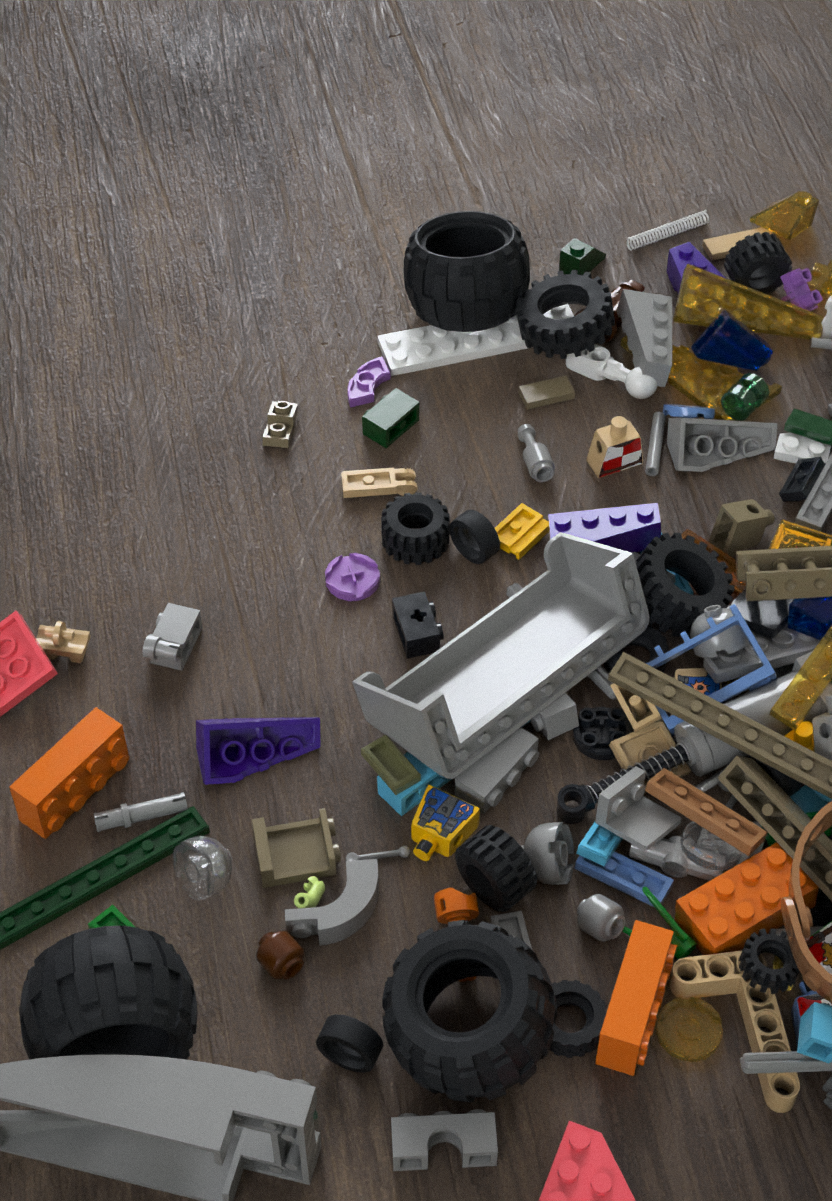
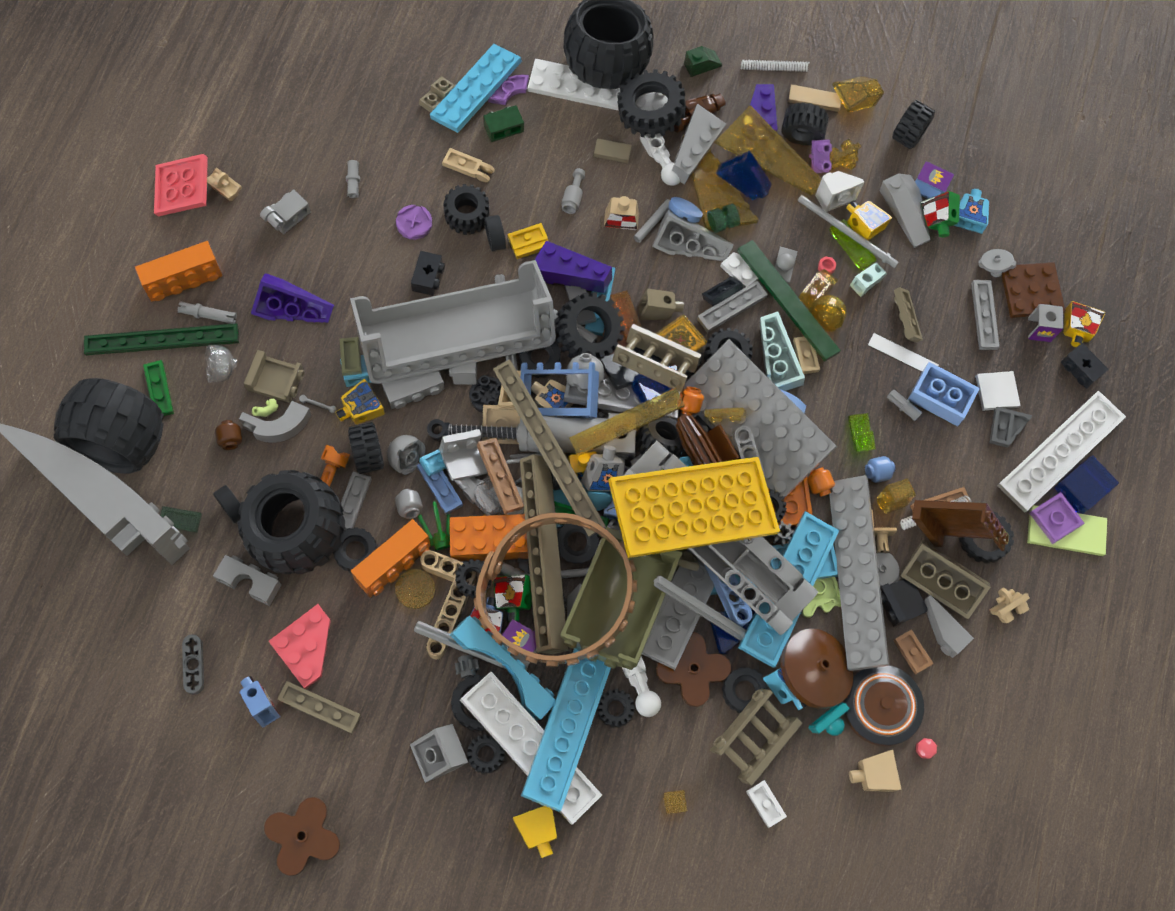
camera: 20 degrees right, 20 degrees up
(236, 561) = (352, 179): none -> light grey pin
(325, 397) = (475, 88): none -> medium azure plate

